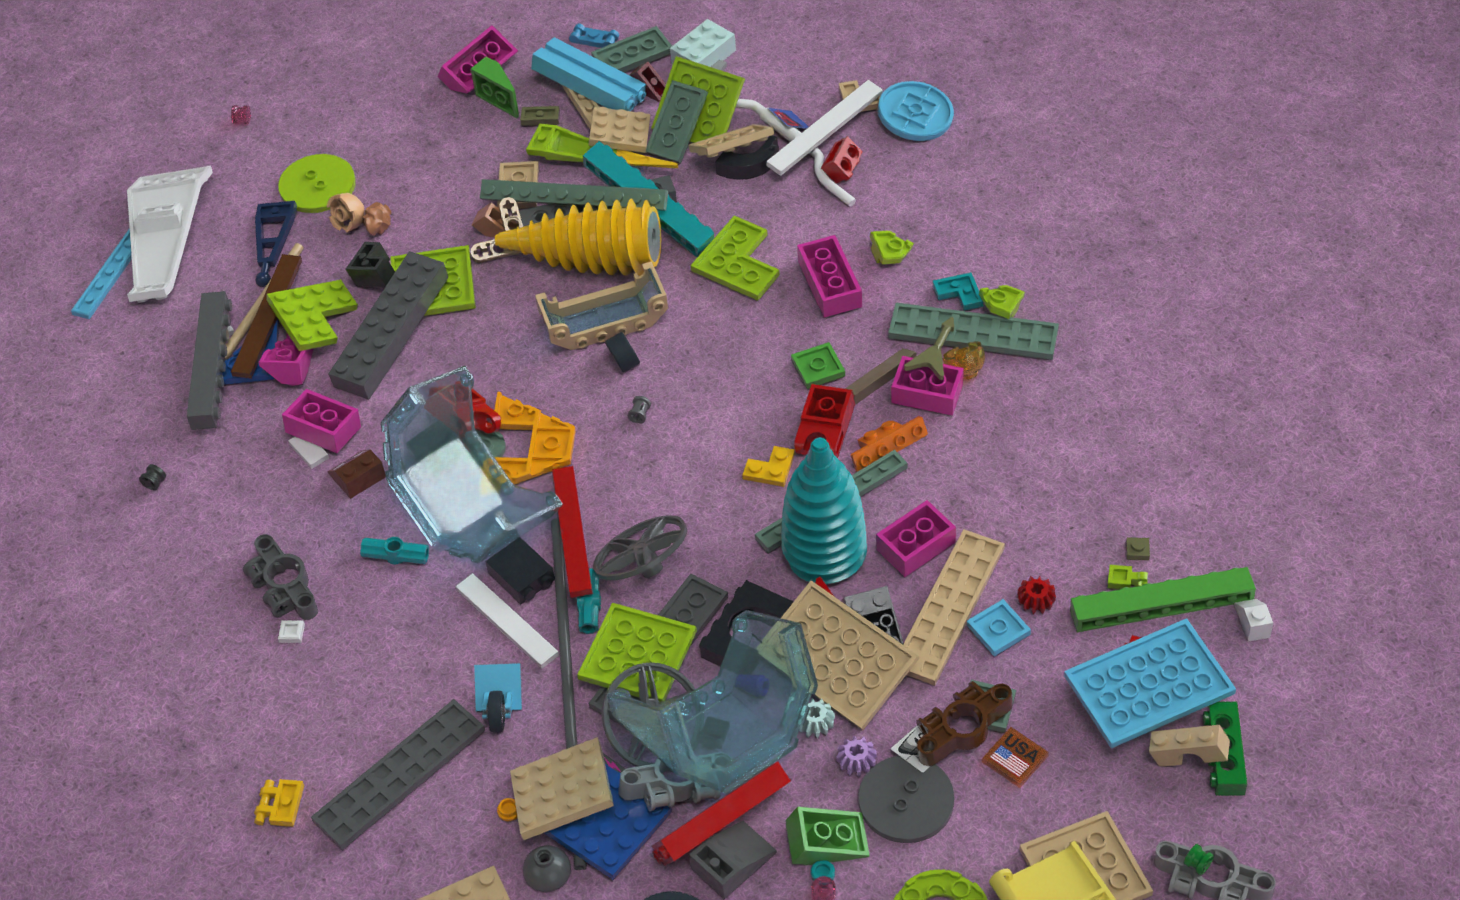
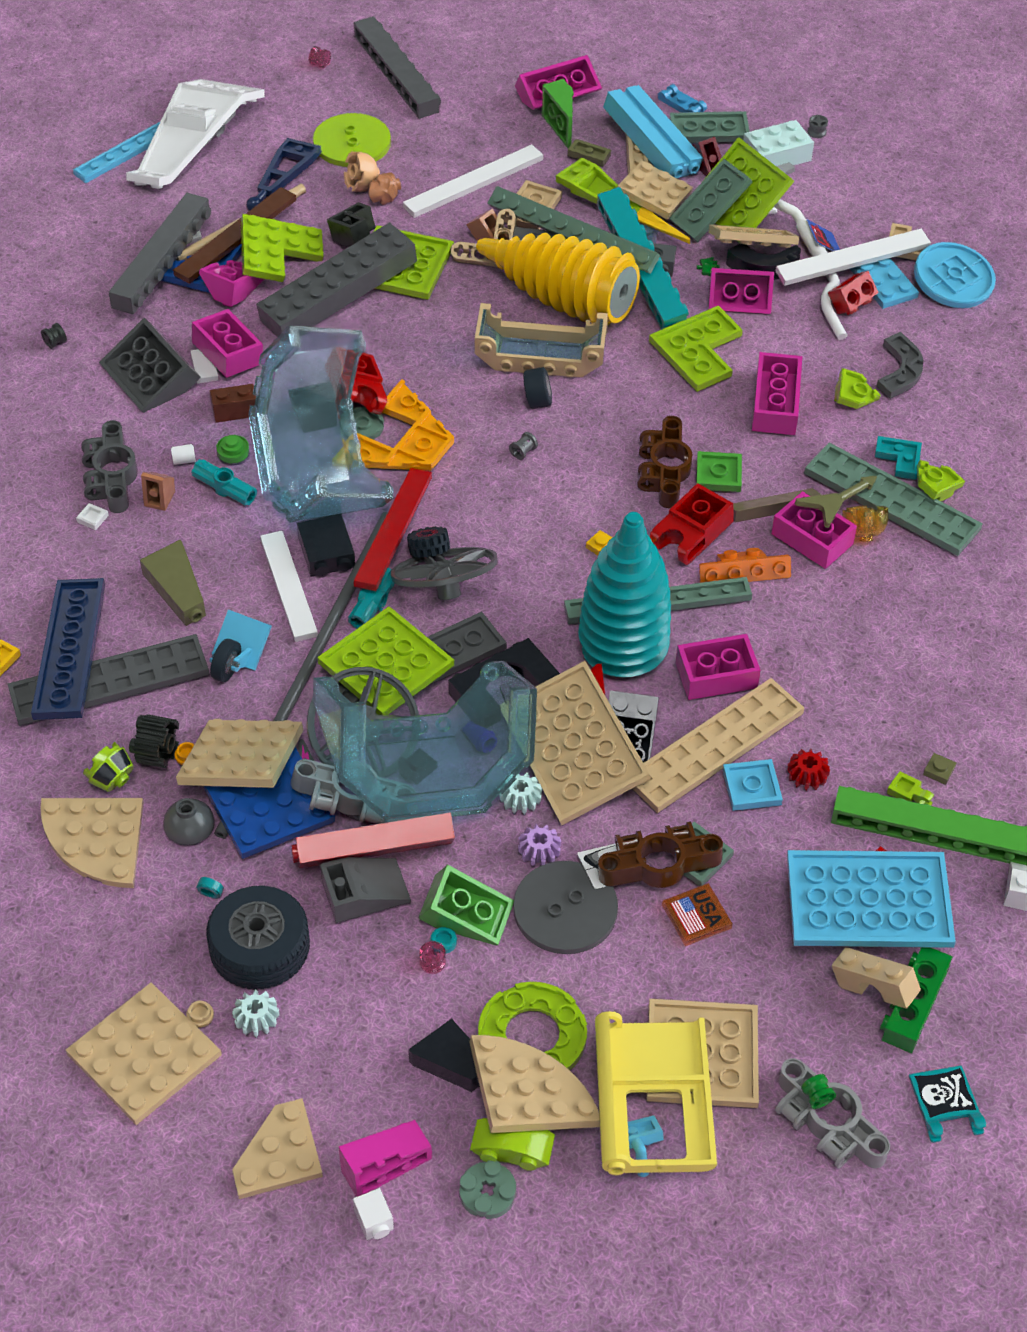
camera: 20 degrees right, 0 degrees up
(260, 472) = (149, 367): none -> dark grey slope
(318, 98) = (397, 67): none -> dark grey brick
(340, 583) = (157, 490): none -> nougat slope
(341, 540) = (183, 454): none -> white brick
(349, 761) = (68, 649): none -> dark blue plate
(383, 517) = (232, 449): none -> bright green plate
(406, 659) = (175, 582): none -> olive slope
(450, 181) = (472, 181): none -> white tile
(452, 852) = (110, 768): none -> lime cone
(478, 810) = (154, 740): none -> pearl dark grey brick
(609, 530) = (428, 541): none -> black wheel
(703, 182) = (706, 265): none -> green piece
(725, 17) = (817, 126): none -> dark grey wheel
(745, 194) = (741, 290): none -> dark pink slope
(772, 391) = (661, 477): none -> reddish brown piece
(867, 137) = (890, 282): none -> medium azure plate
(923, 205) = (910, 366): none -> dark grey plate
(1290, 819) = (946, 1096): none -> flag

